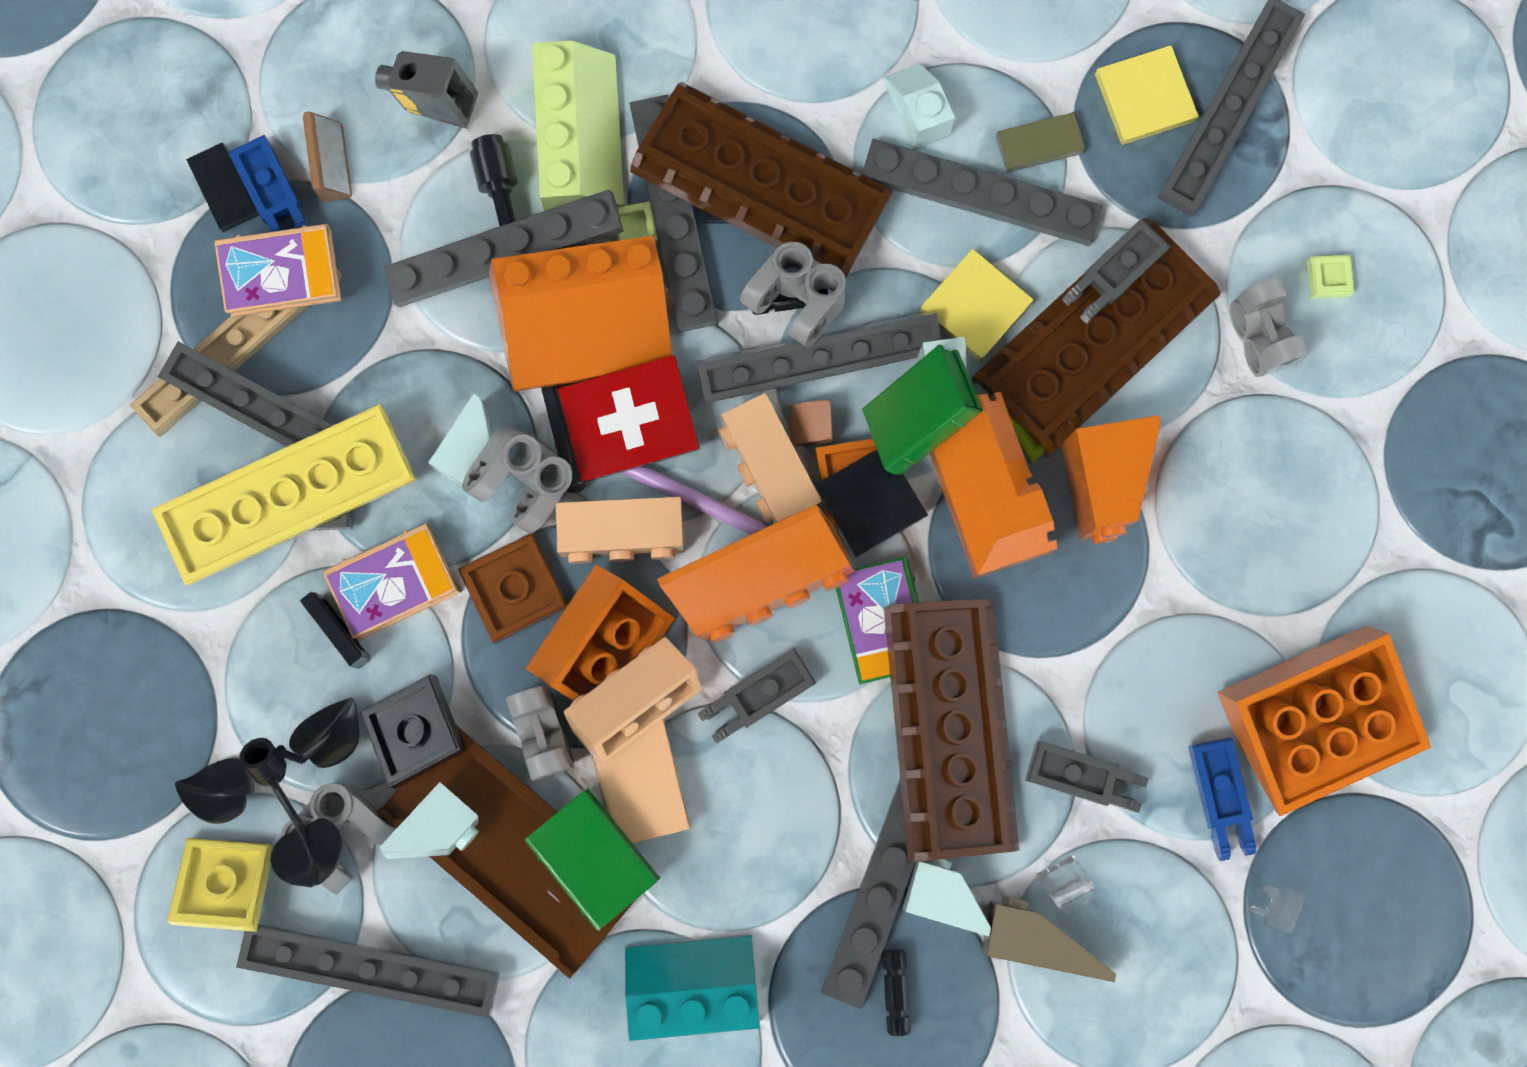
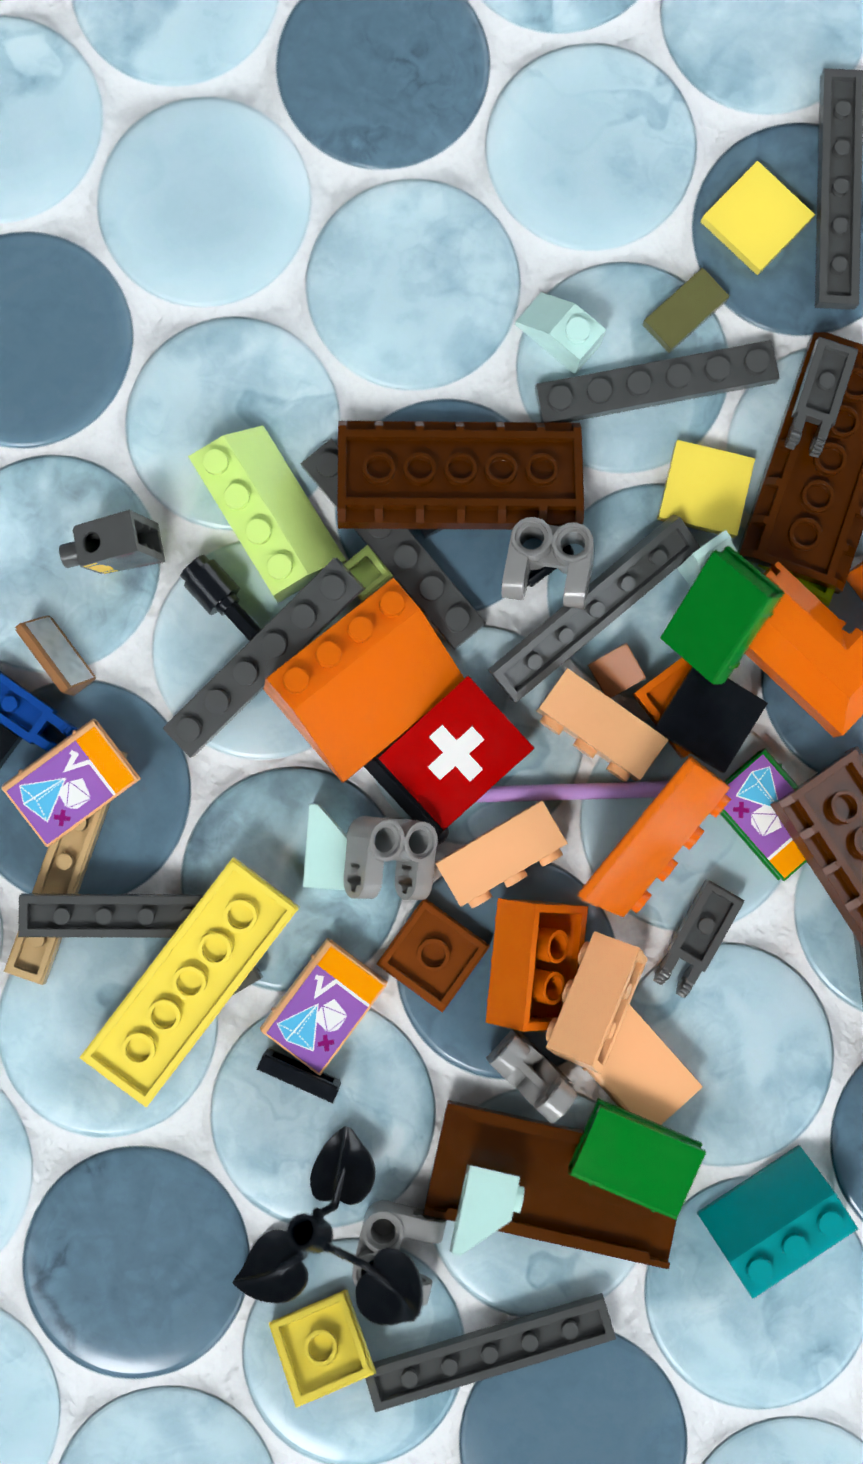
camera: 25 degrees left, 5 degrees up
(412, 731) = (416, 1128): black tile -> none

